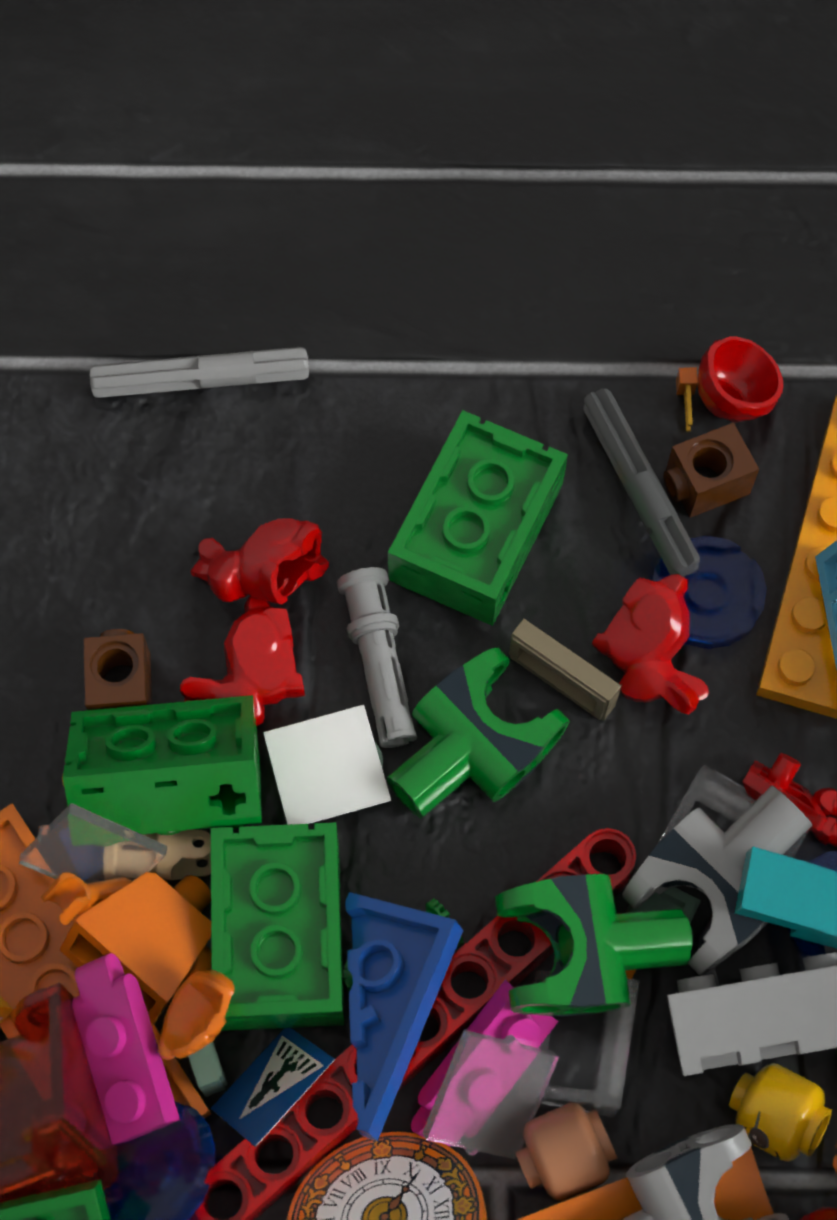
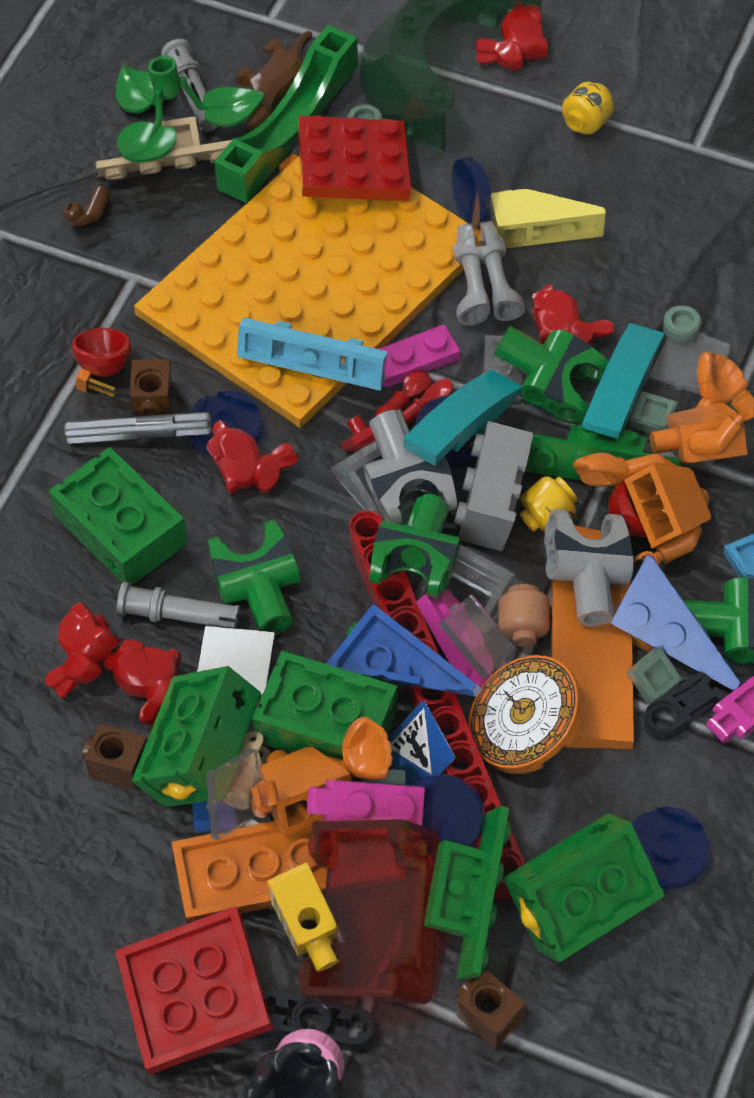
camera: 65 degrees left, 10 degrees down
(563, 670) = (239, 511): dark tan tile -> none

